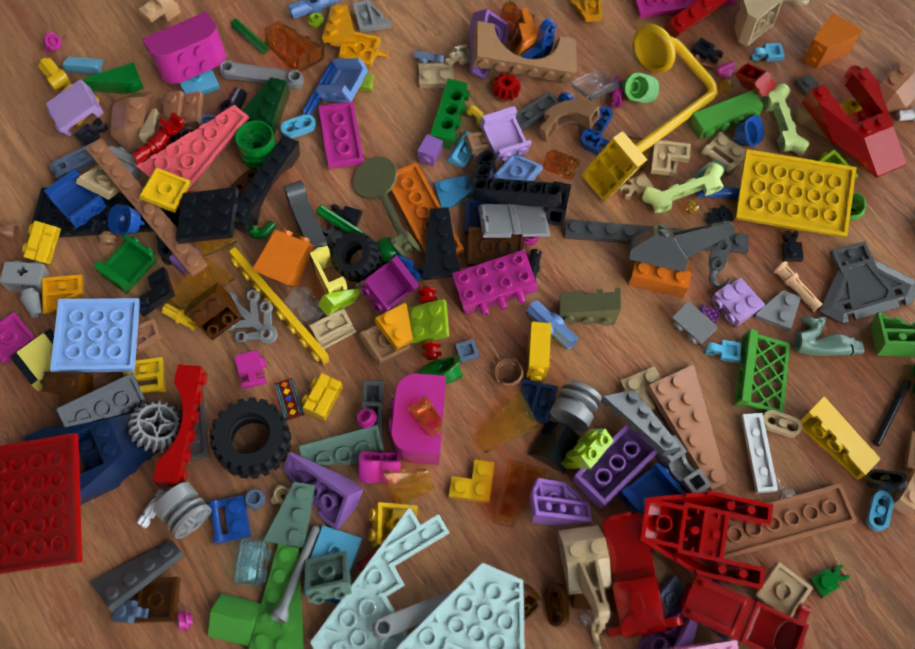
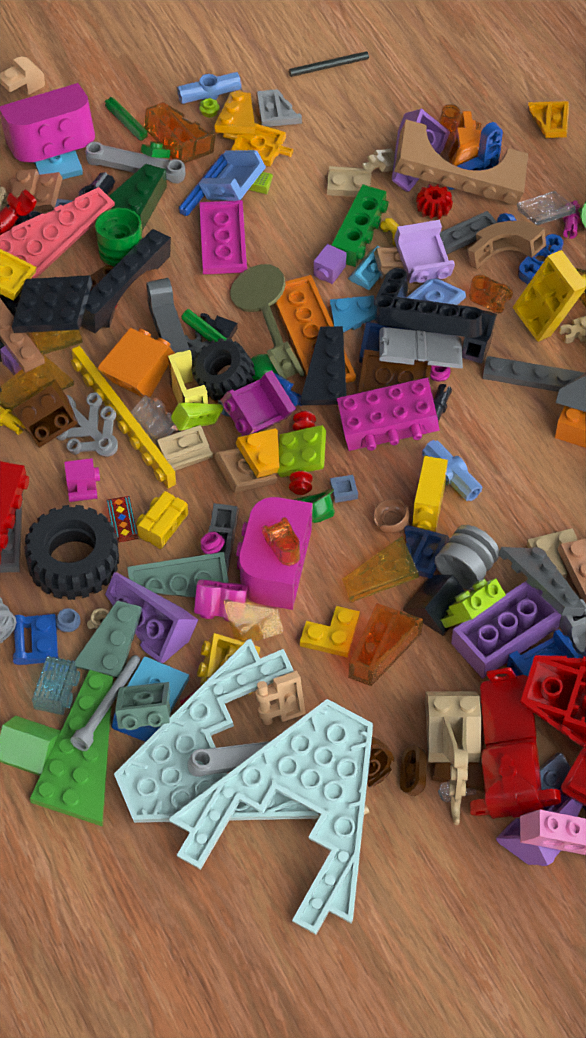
camera: 10 degrees right, 10 degrees down
(257, 233) = (112, 336): green arm -> none
(277, 63) = (155, 150): none -> green plate
(297, 126) = (173, 222): medium azure plate -> none
(425, 56) = (337, 159): sand blue plate -> none
(443, 556) = (288, 697): none -> light nougat plate
(557, 504) = (428, 661): medium lavender wedge -> none
(590, 308) = (501, 454): olive wedge -> none

